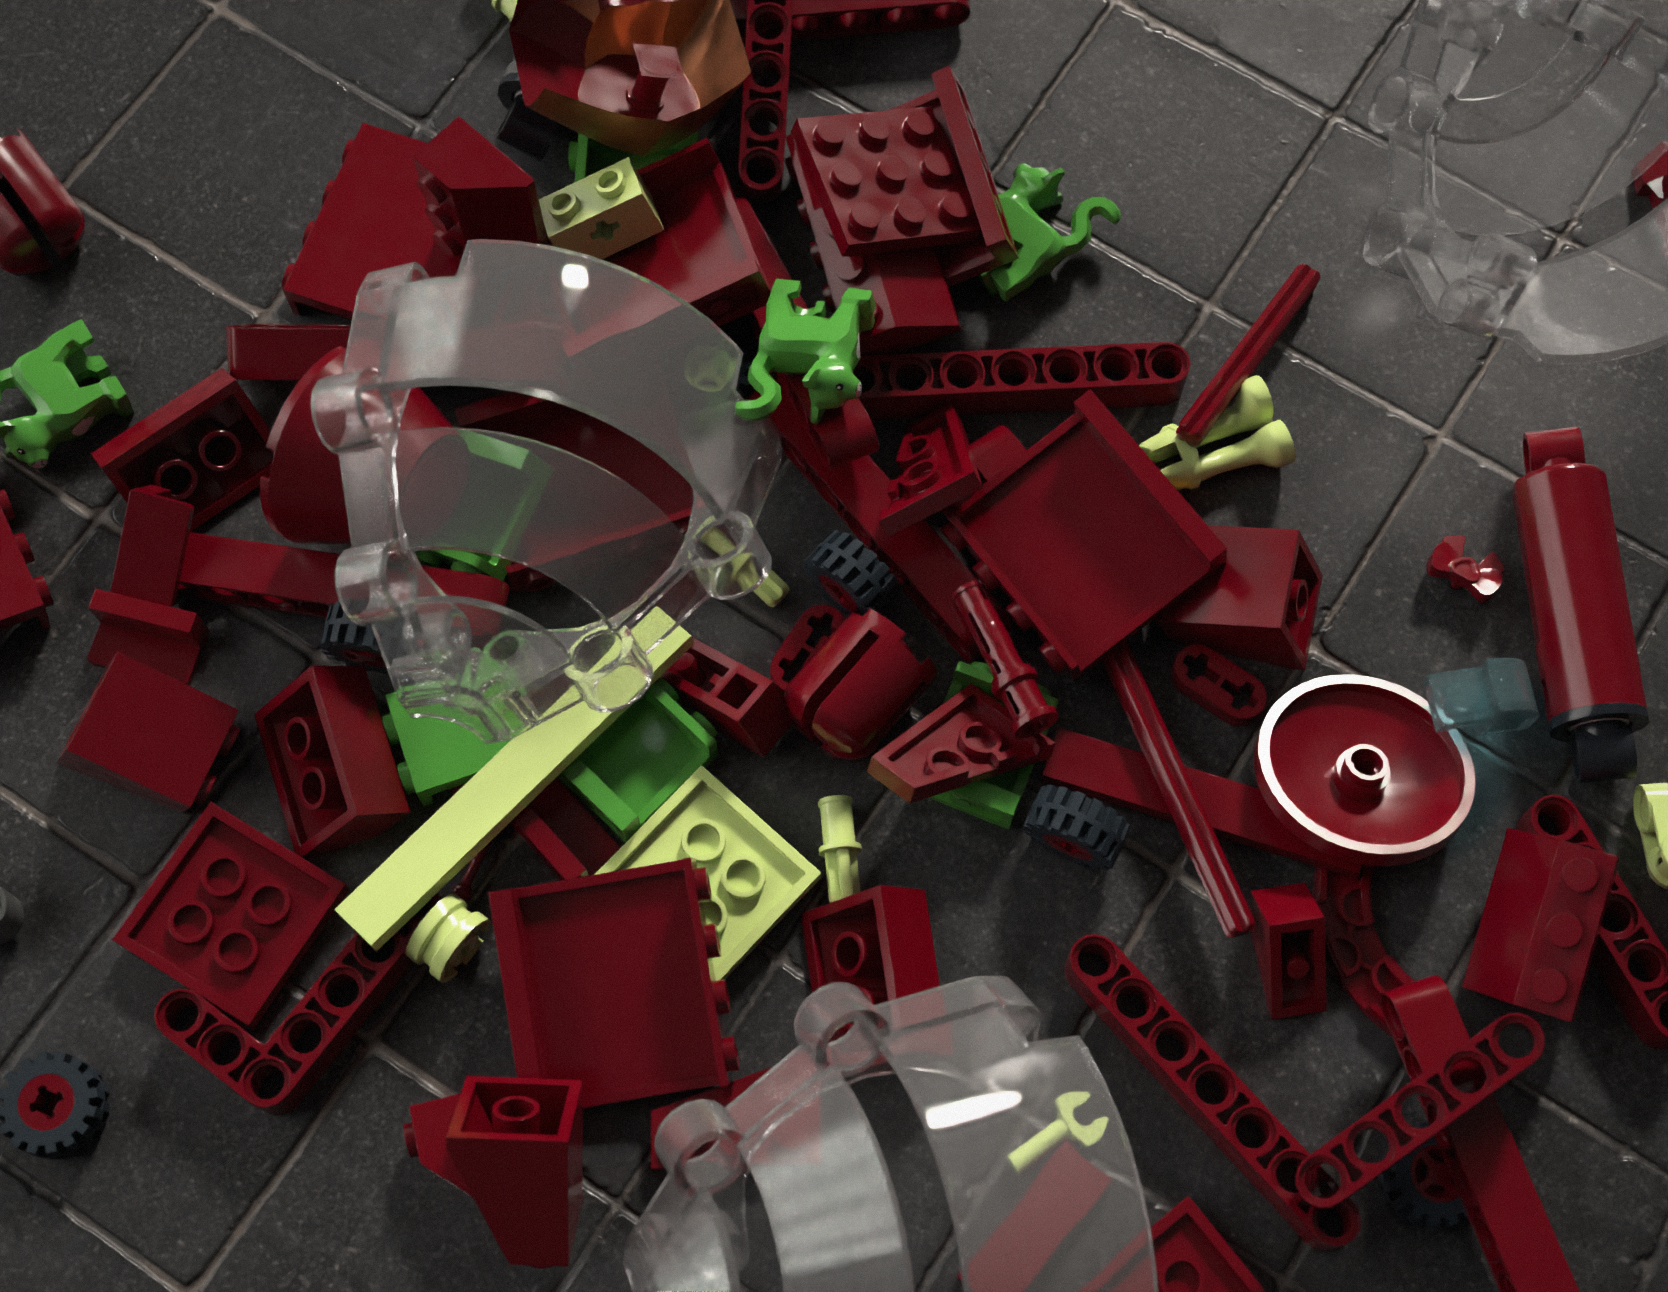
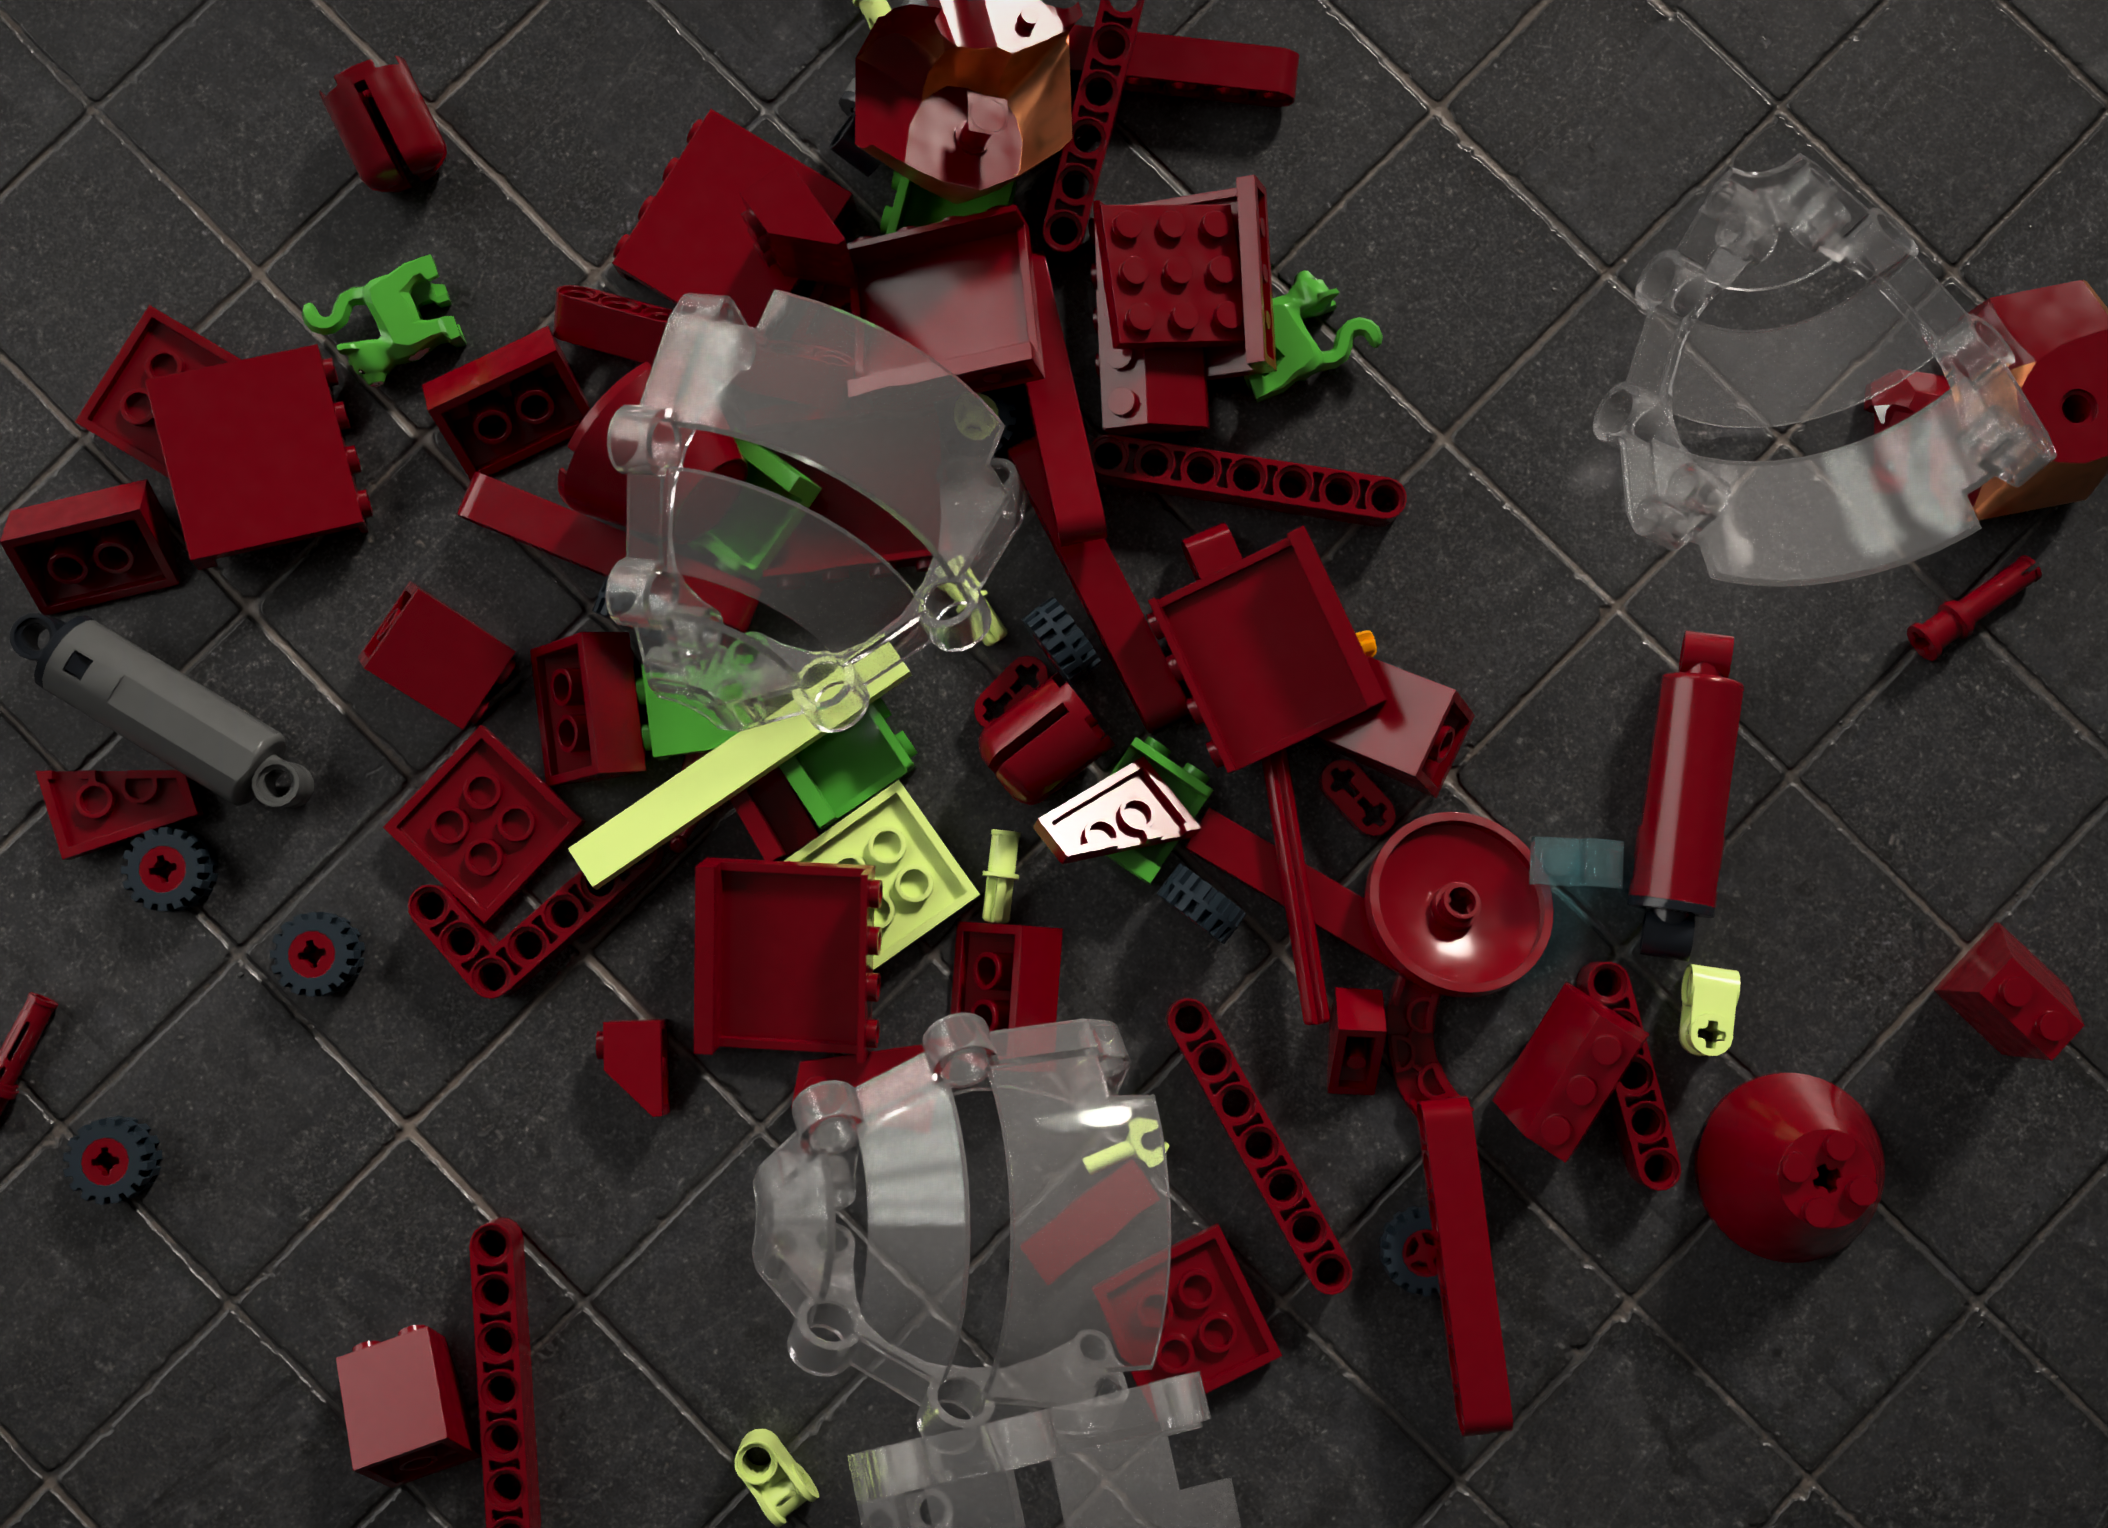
camera: 10 degrees right, 15 degrees up
(148, 632) = (447, 565): dark red panel -> none
(152, 546) = (462, 488): dark red panel -> none
(447, 937) = (658, 885): yellowish green wheel -> none
(523, 1162) = (684, 1092): dark red slope -> none
(601, 212) = (906, 257): yellowish green brick -> none
(730, 697) = (934, 724): dark red slope -> none
(808, 344) = (1060, 429): bright green animal -> none
(934, 470) = (1155, 559): dark red wing -> none
(1013, 679) = (1176, 767): dark red pin -> none
(1247, 355) = (1462, 500): dark red axle -> none
(1250, 411) = (1447, 554): yellowish green piece -> none
(1434, 1084) = (1396, 1226): dark red beam -> none
(1479, 579) = (1608, 751): dark red piece -> none

